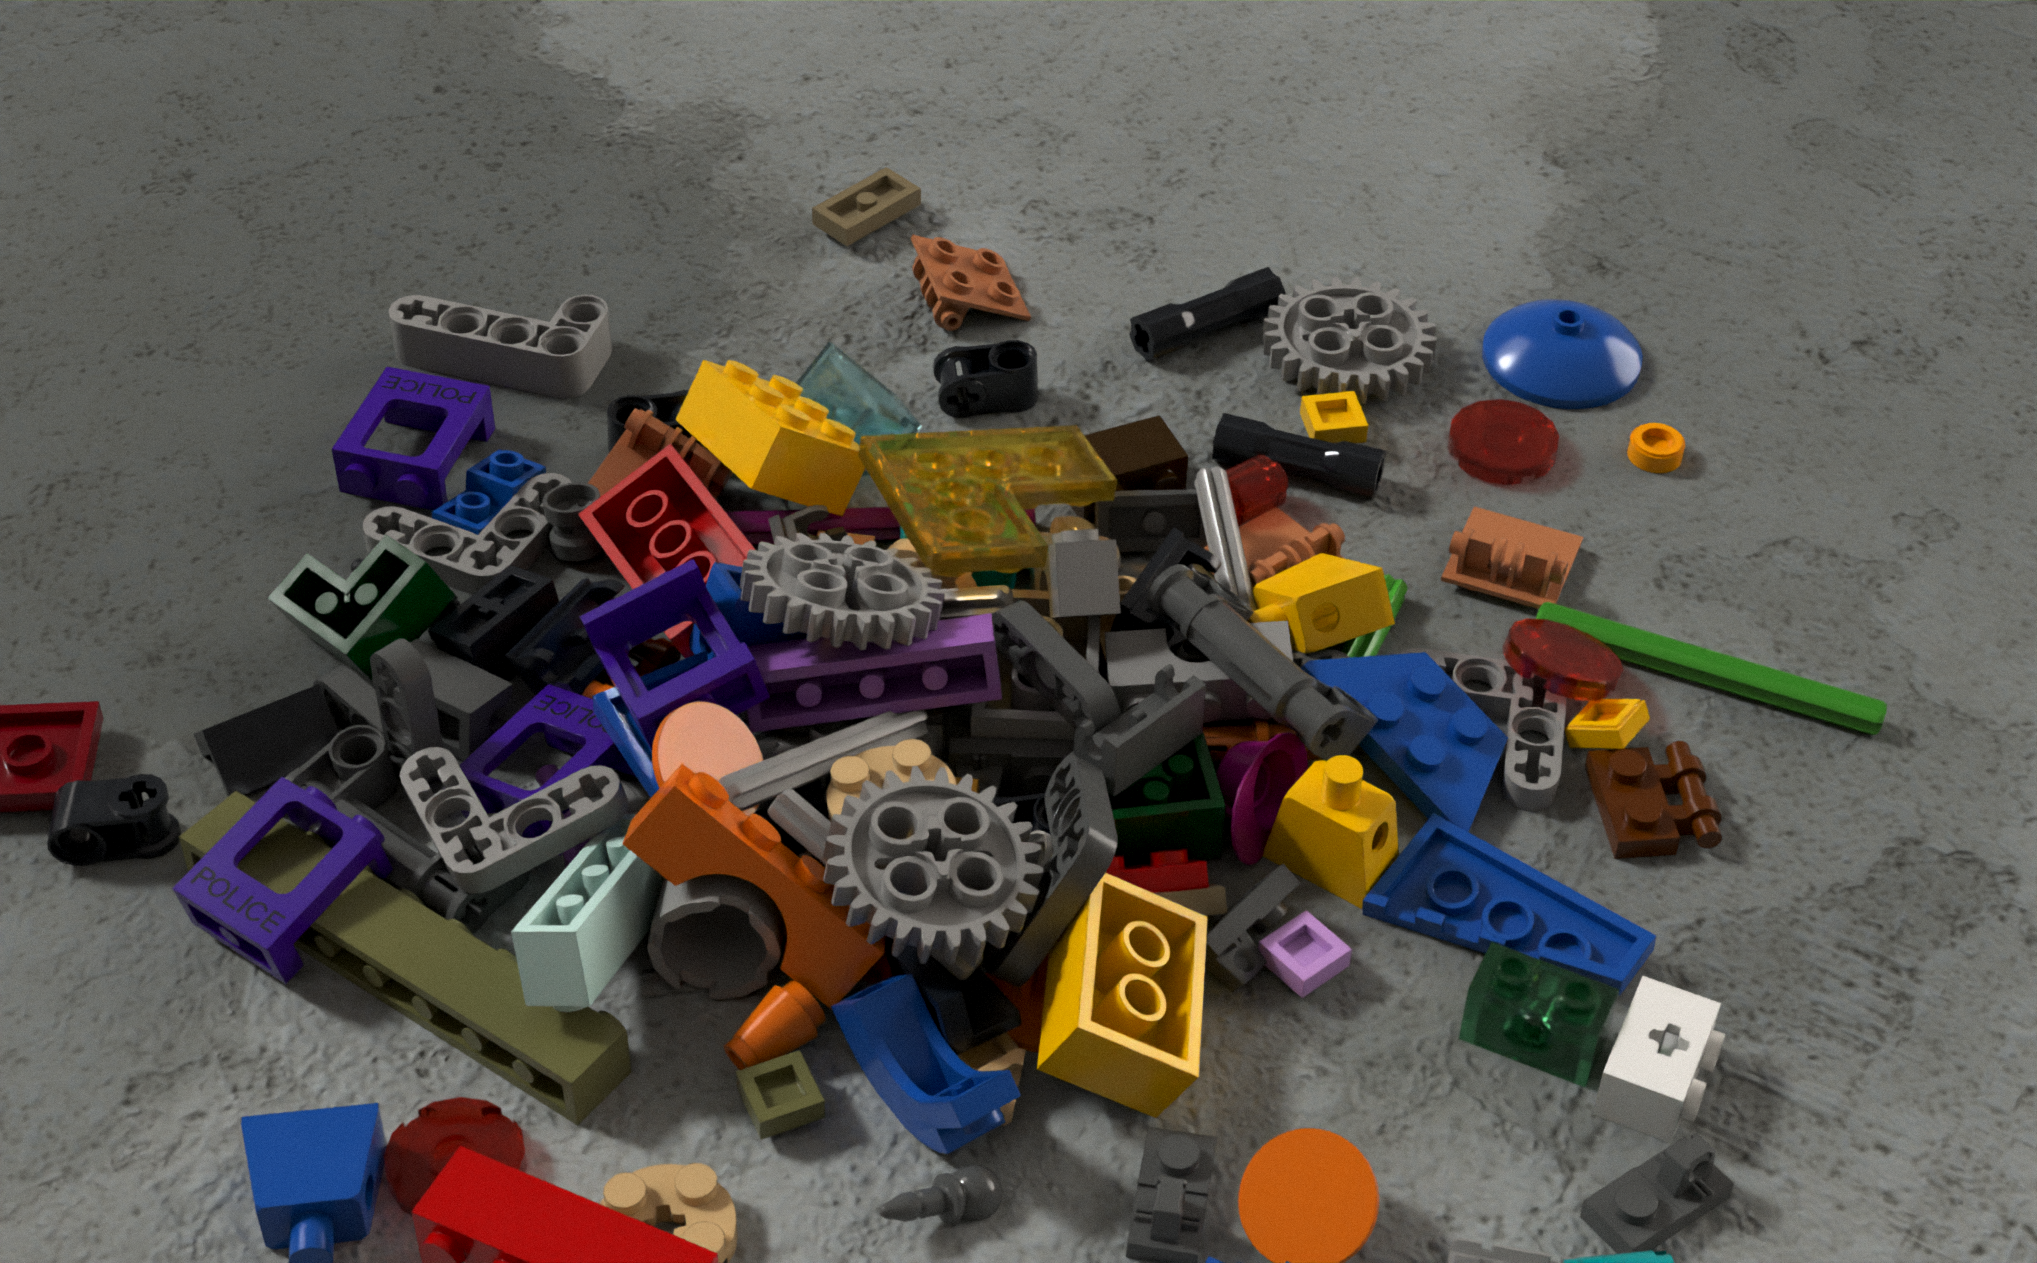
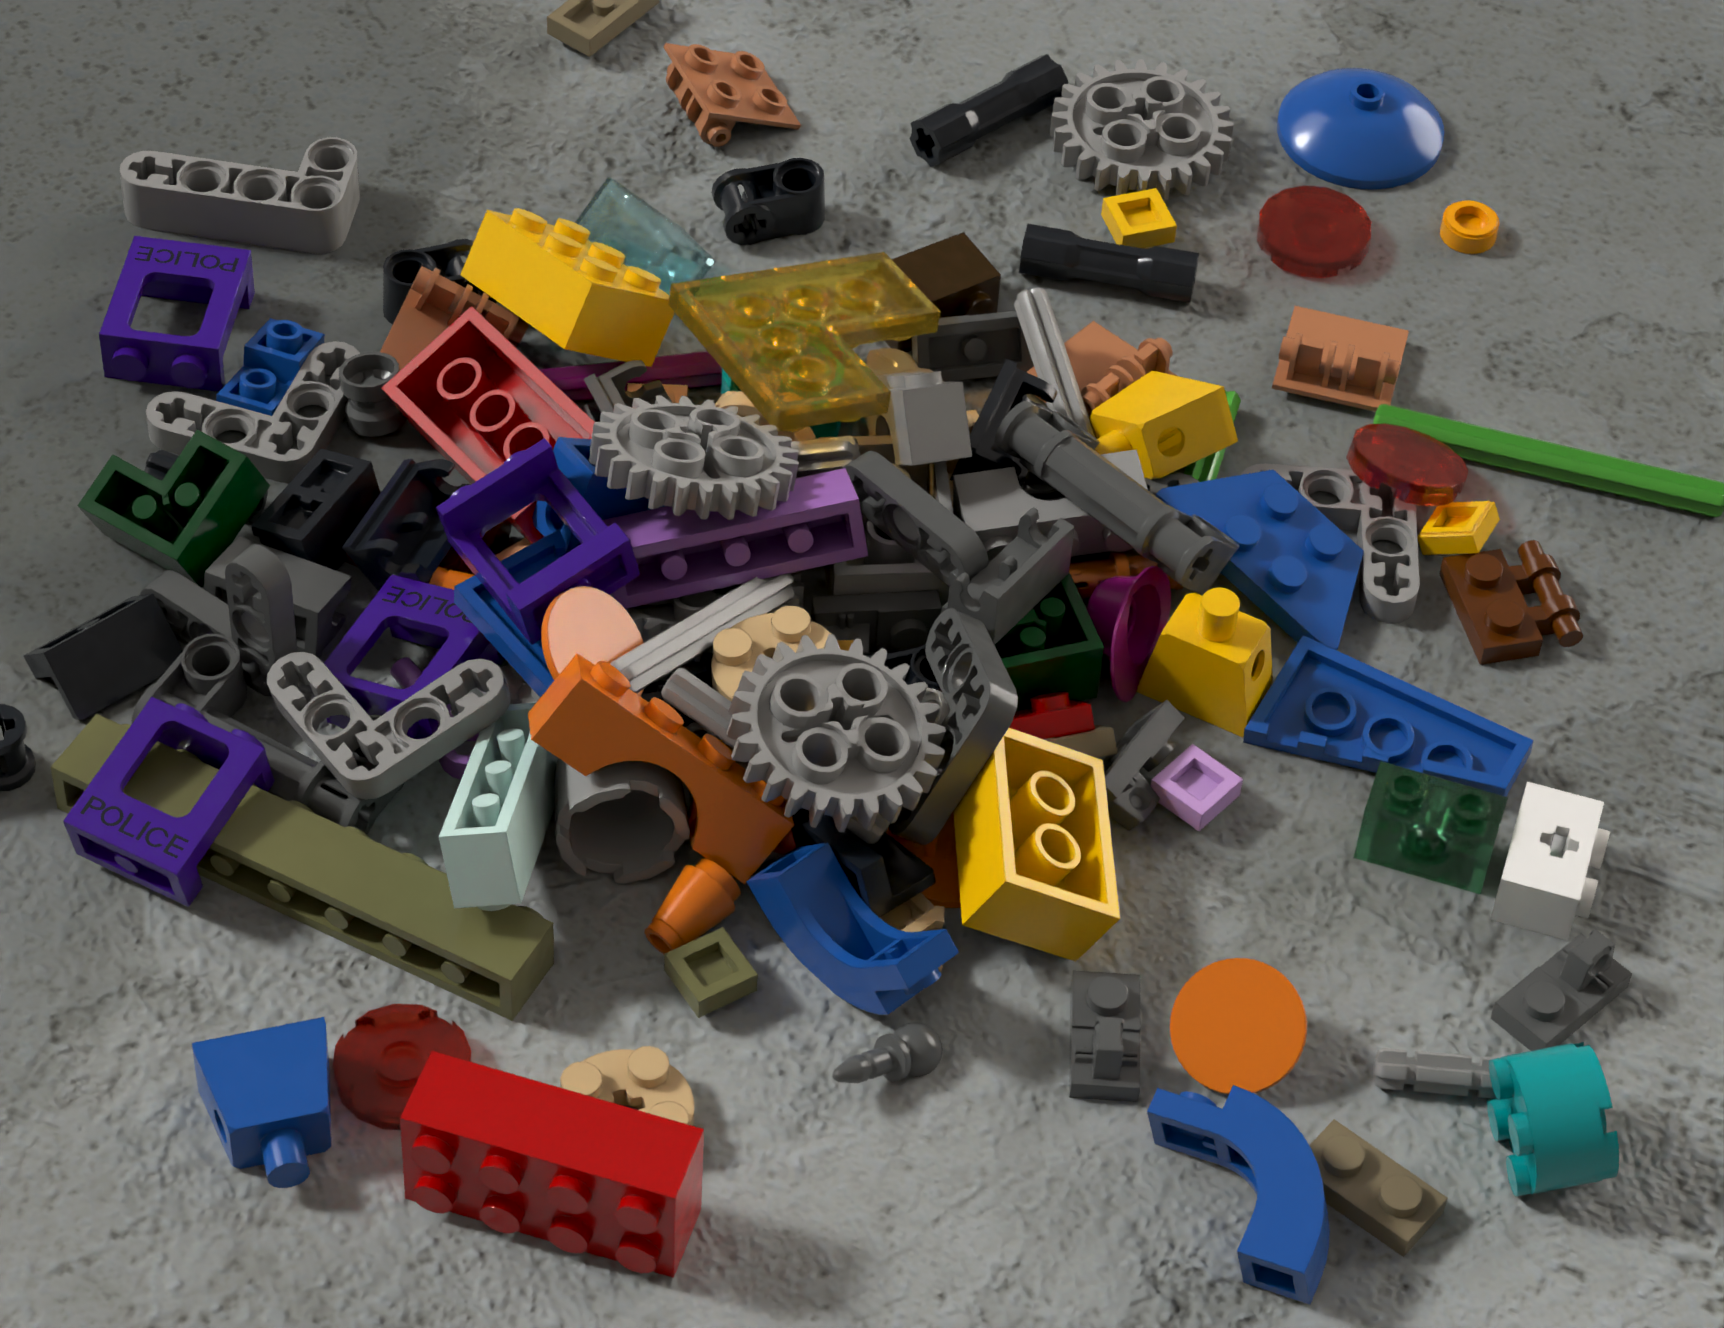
camera: 10 degrees left, 5 degrees up
(1256, 487) = (1075, 300): clear red brick -> none

